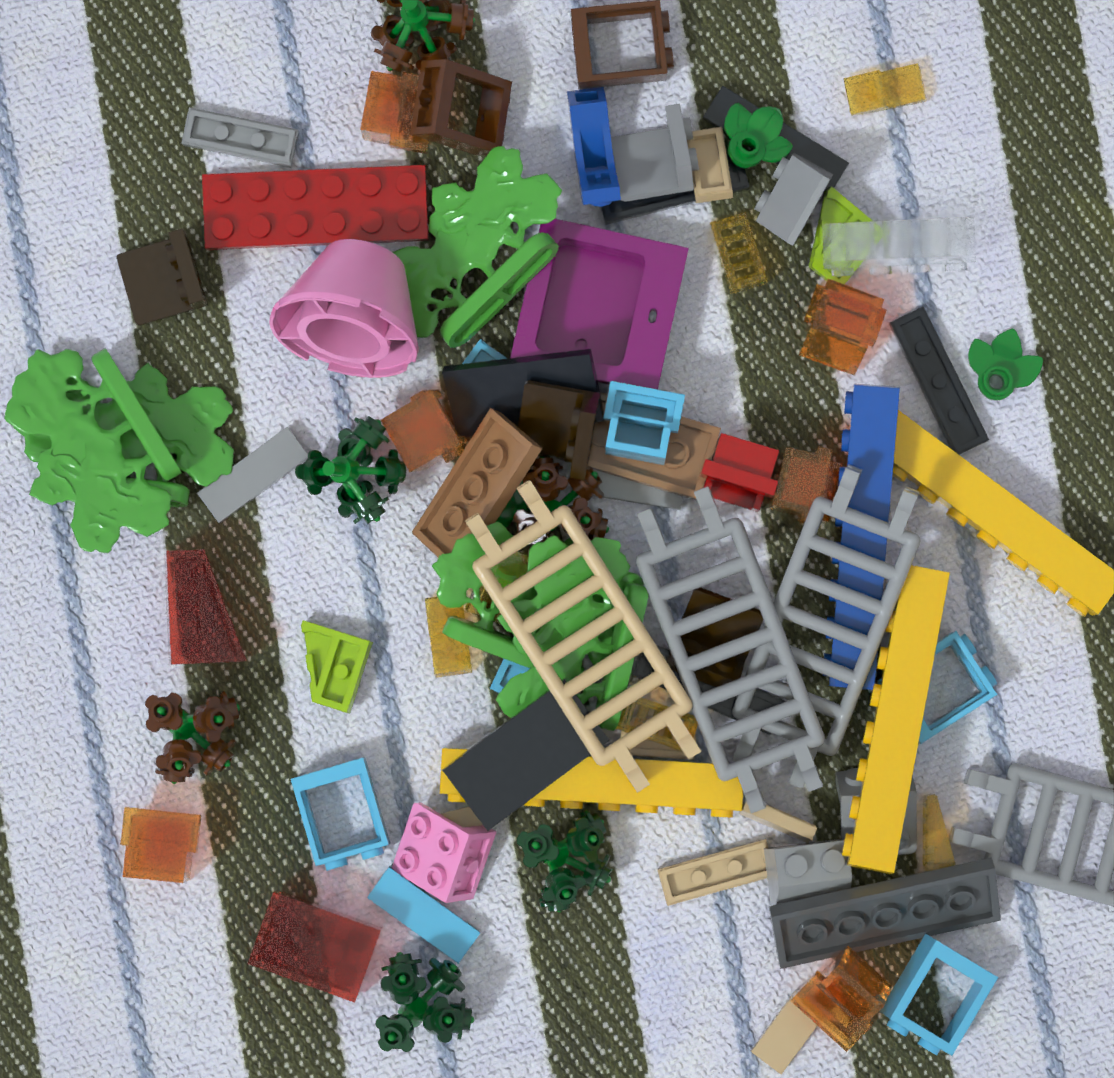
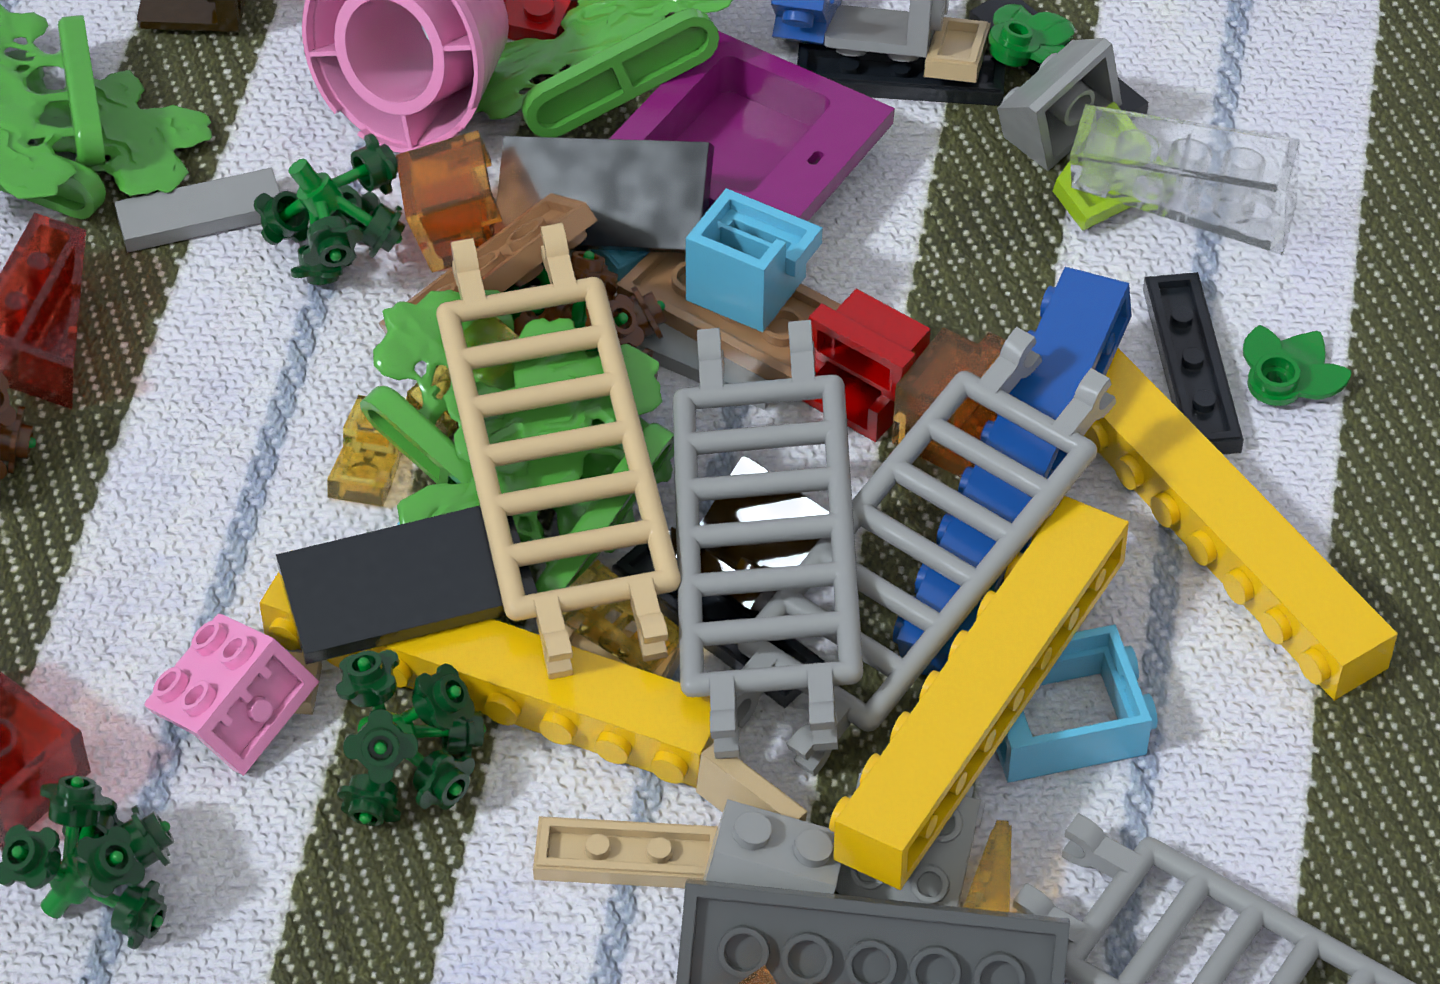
camera: 20 degrees right, 35 degrees down
(325, 776) = (86, 553): medium azure window -> none
(334, 665) = (194, 435): lime wing -> none
(423, 915) = (160, 772): medium azure tile -> none
(560, 422) = (640, 223): dark brown bracket -> none
(749, 281) = (961, 169): clear yellow slope -> none
(841, 325) = (1073, 232): clear orange plate -> none
(885, 89) = (1208, 49): clear yellow slope -> none

